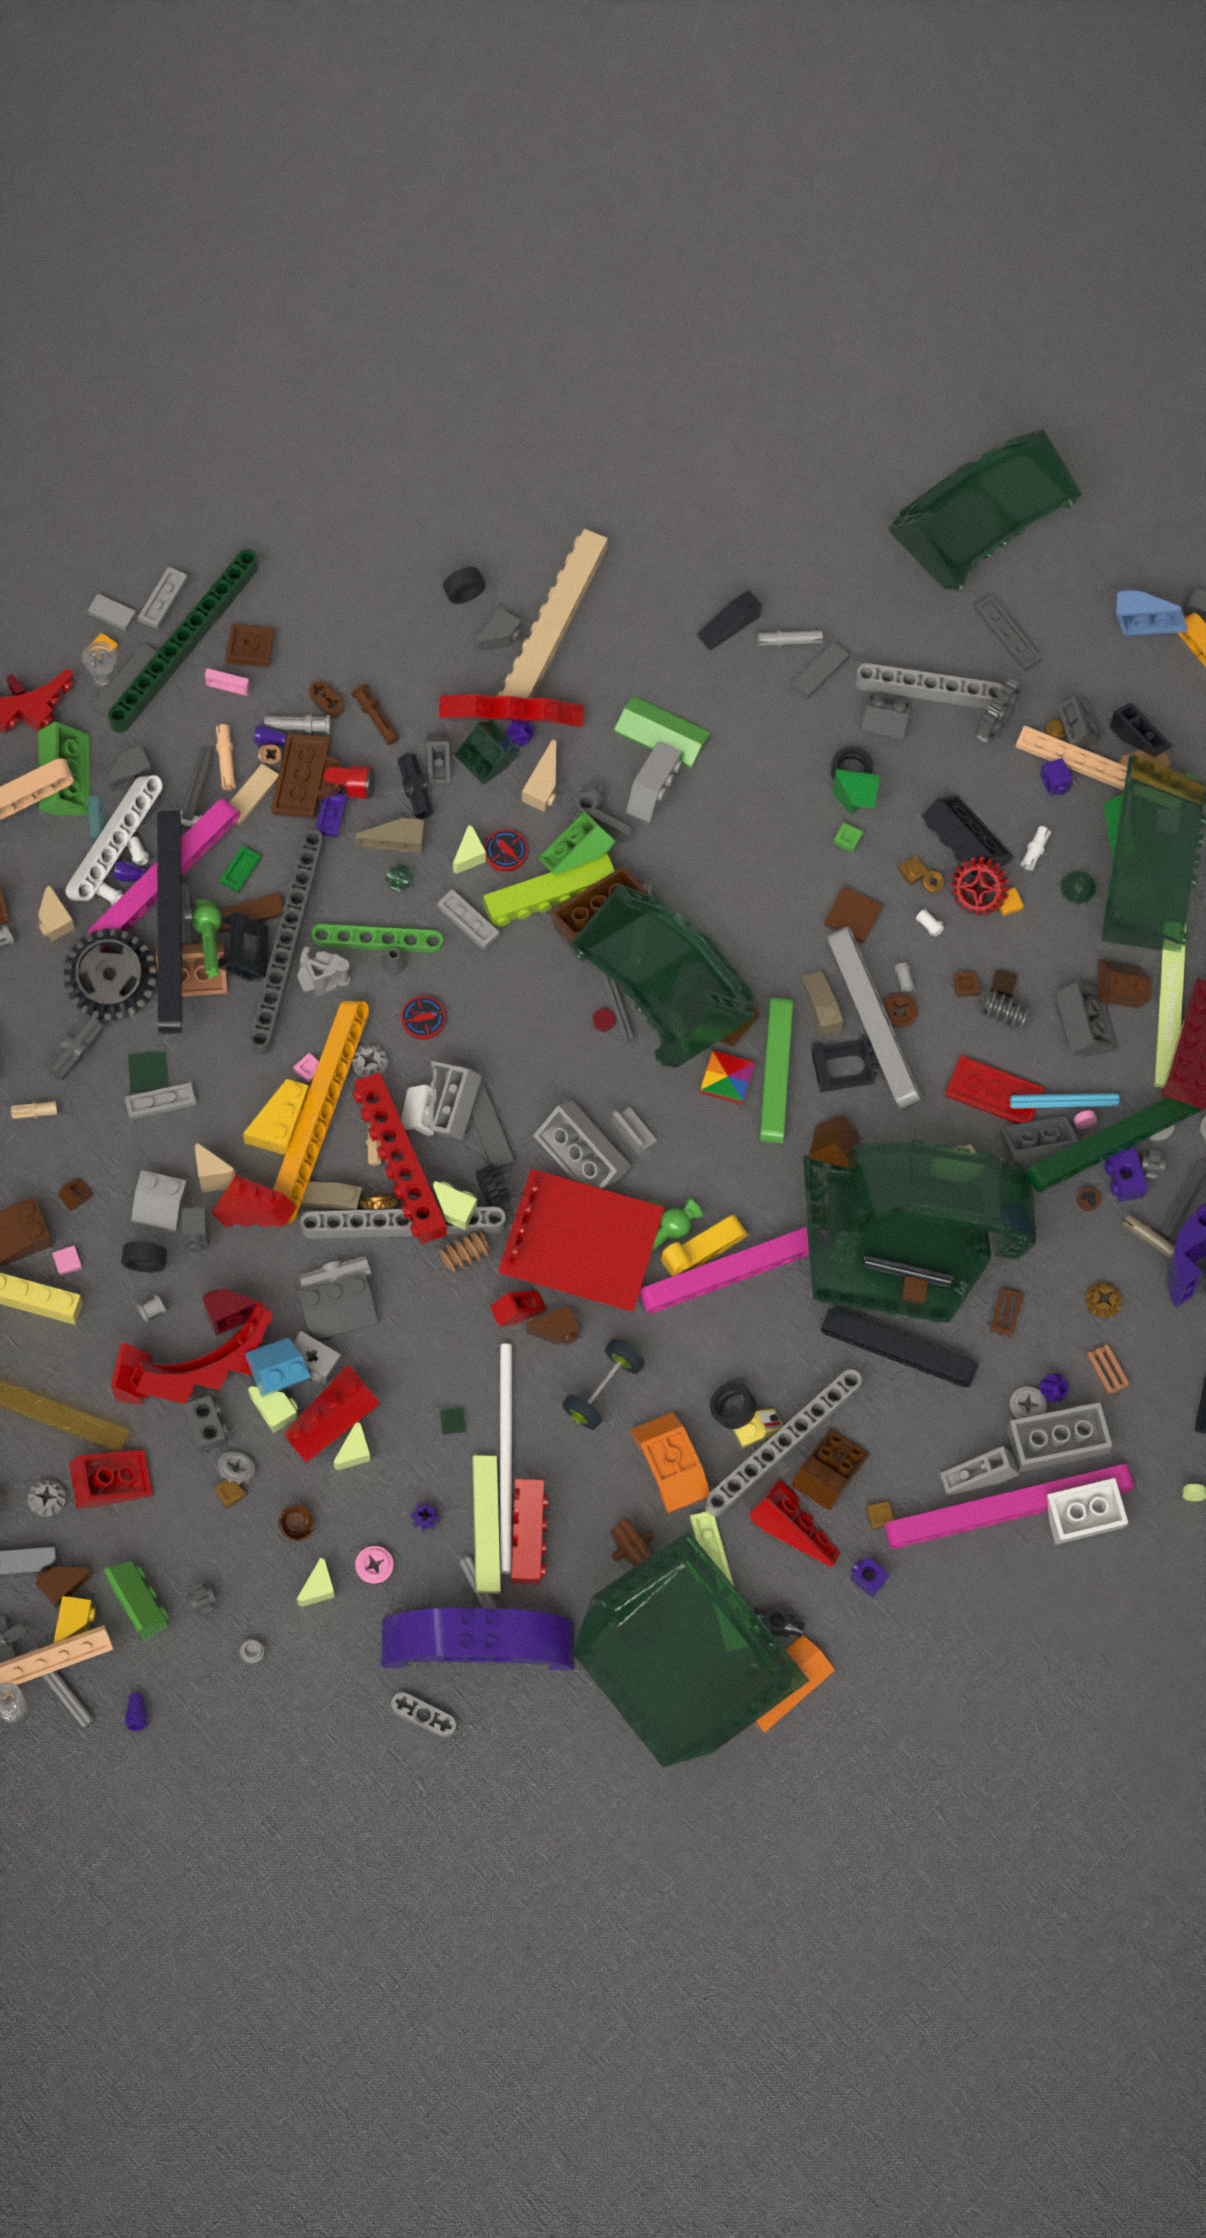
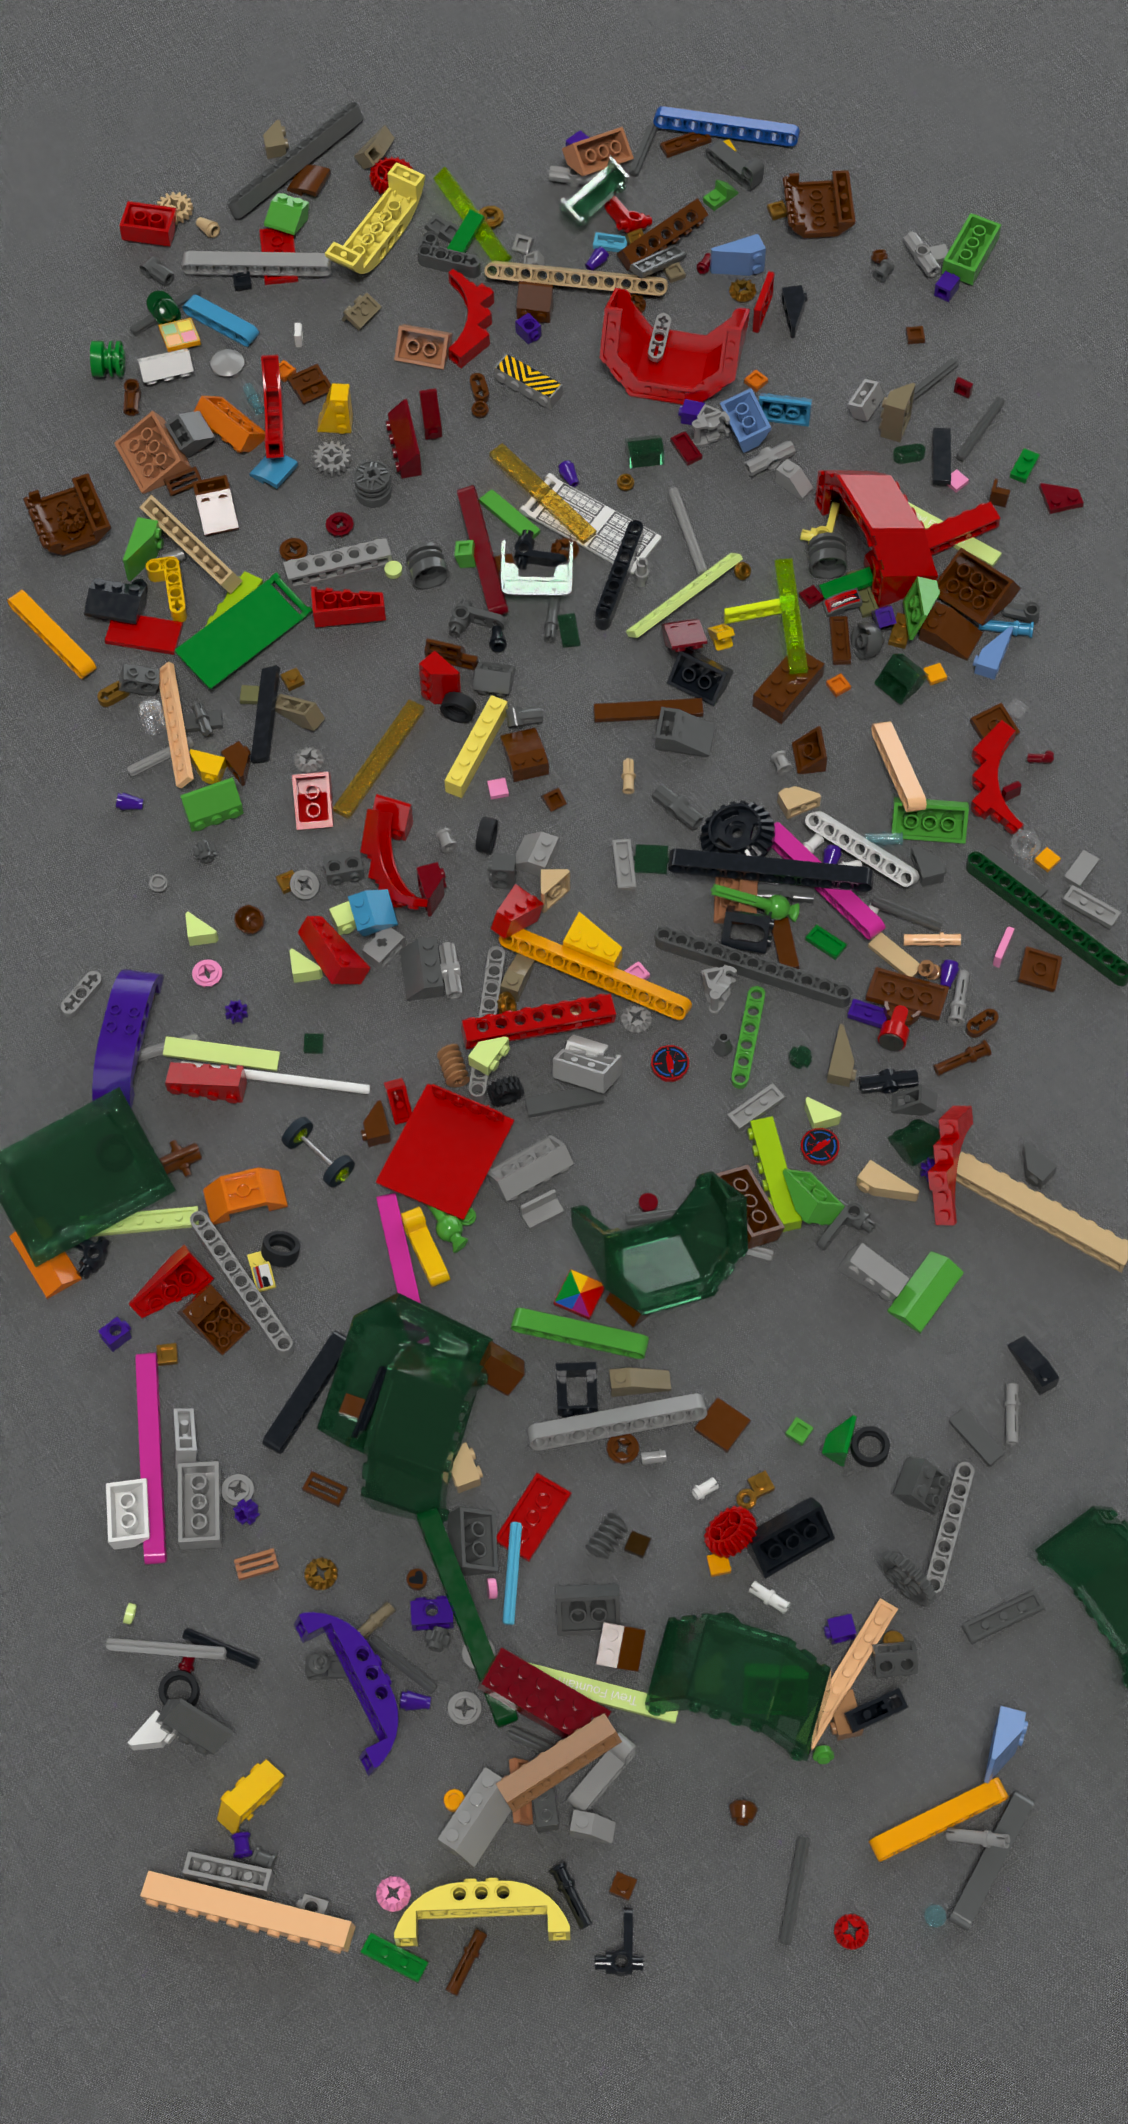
camera: 105 degrees right, 5 degrees down
(464, 585) = (1083, 1140): black tyre -> none
(966, 984) = (639, 1509): reddish brown plate -> none

